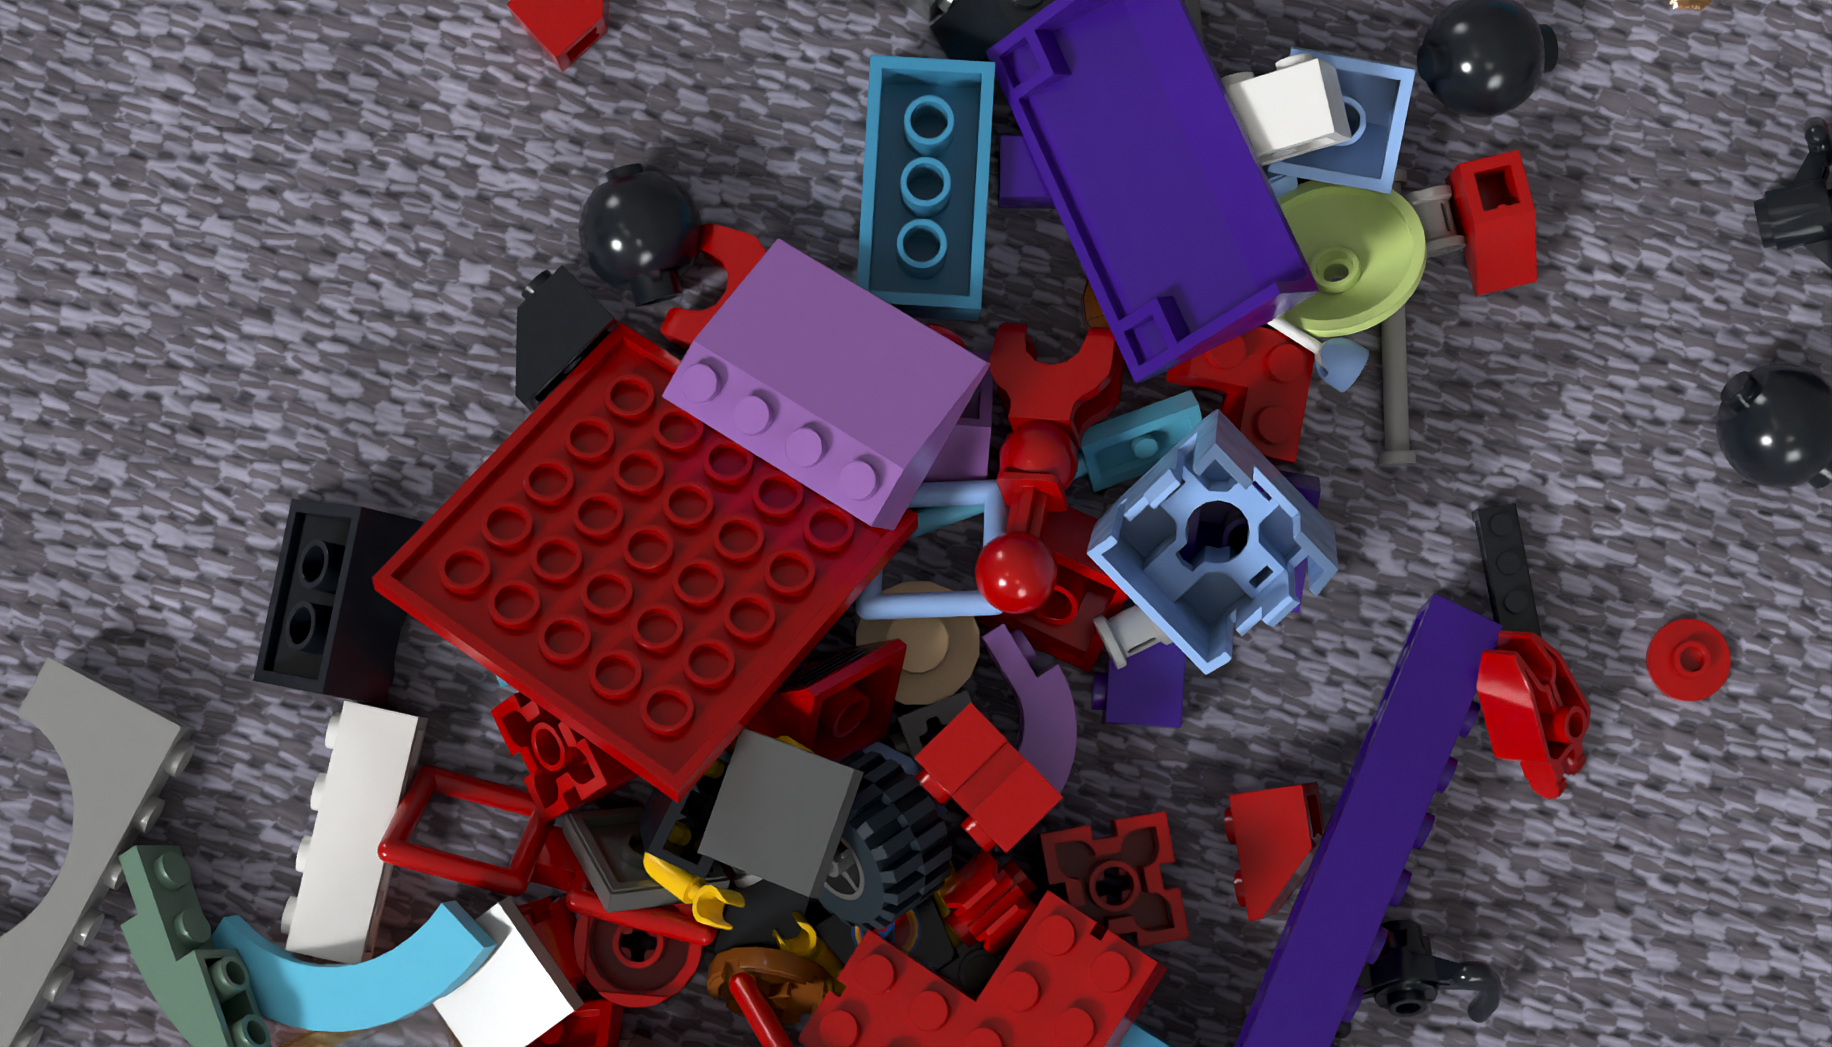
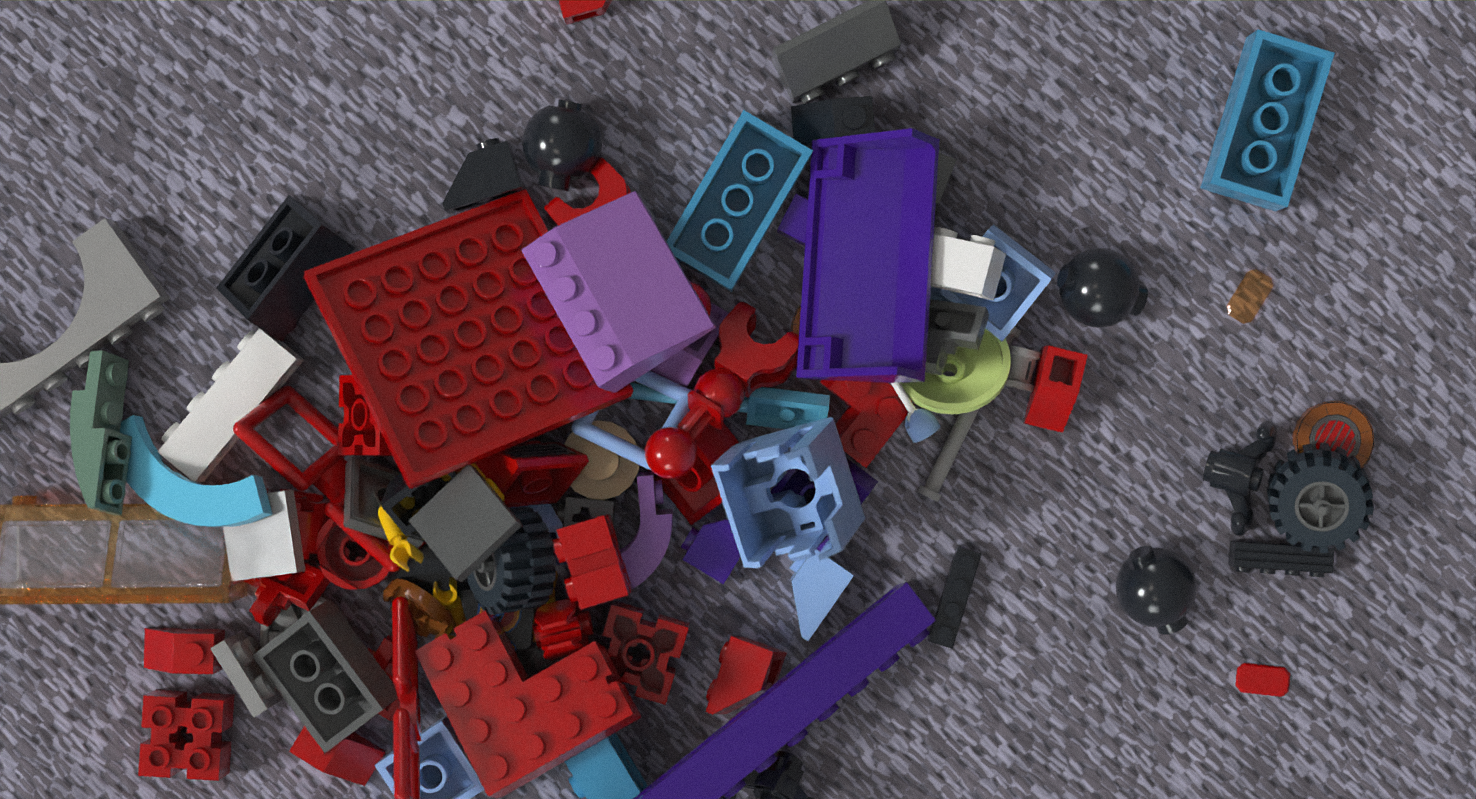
camera: 30 degrees right, 5 degrees up
(1128, 634) = (714, 517): light grey bush -> none
(1311, 670) = (816, 590): none -> light blue slope
(1318, 203) = (952, 327): none -> dark grey hinge
(1533, 710) = (927, 676): red hinge -> none
(1688, 660) = (1034, 691): red piece -> none

